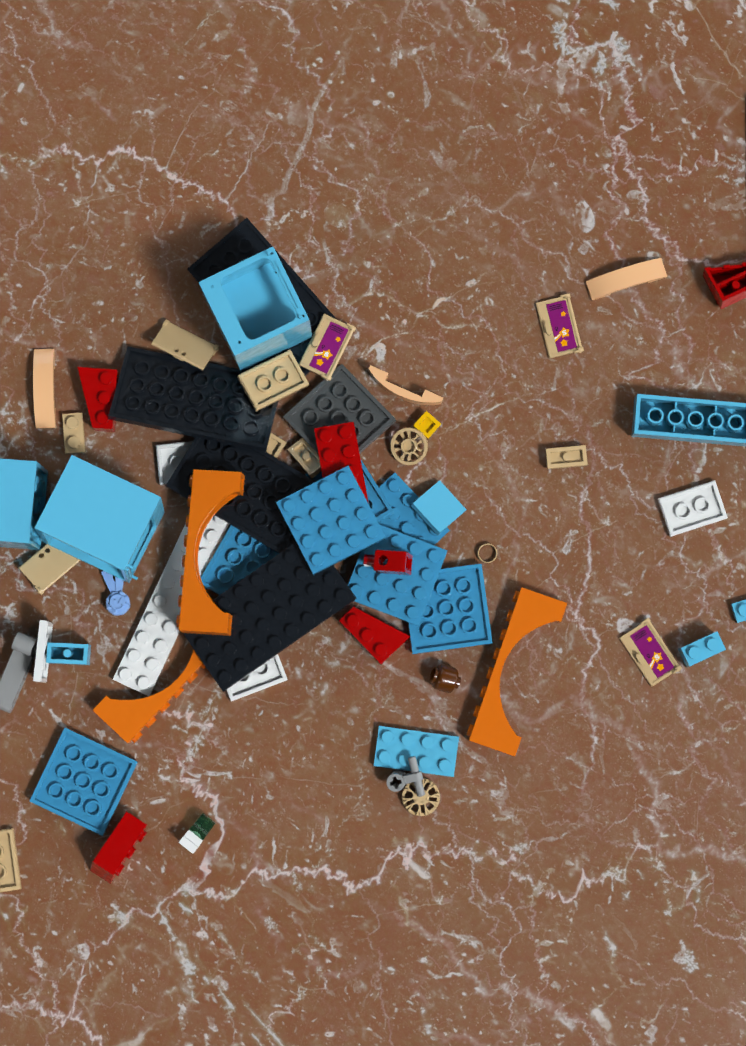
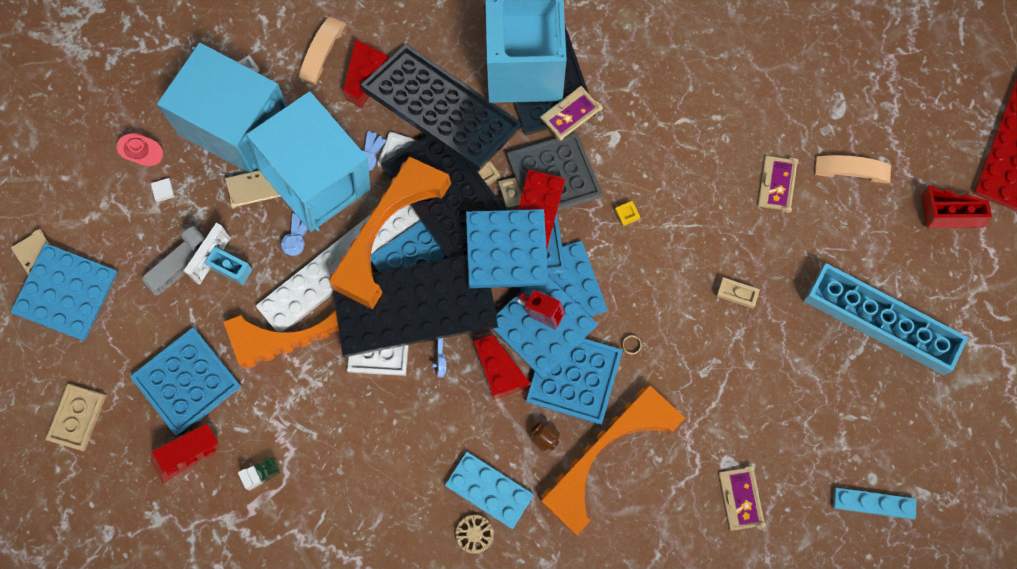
camera: 25 degrees right, 10 degrees down
(74, 433) = (329, 91): tan plate -> none
(146, 471) = (372, 148): none -> light blue piece
(196, 350) = (452, 63): tan door -> none
(273, 380) = (512, 118): tan tile -> none
(315, 651) = (441, 360): none -> light blue piece
(409, 446) = (604, 223): tan wheel -> none
(415, 776) = (478, 511): light grey piece -> none
(427, 398) = (636, 192): light nougat slope -> none
(438, 507) = (606, 285): medium azure tile -> none
(692, 508) = (833, 387): white tile -> none
(701, 649) = (792, 516): medium azure brick -> none

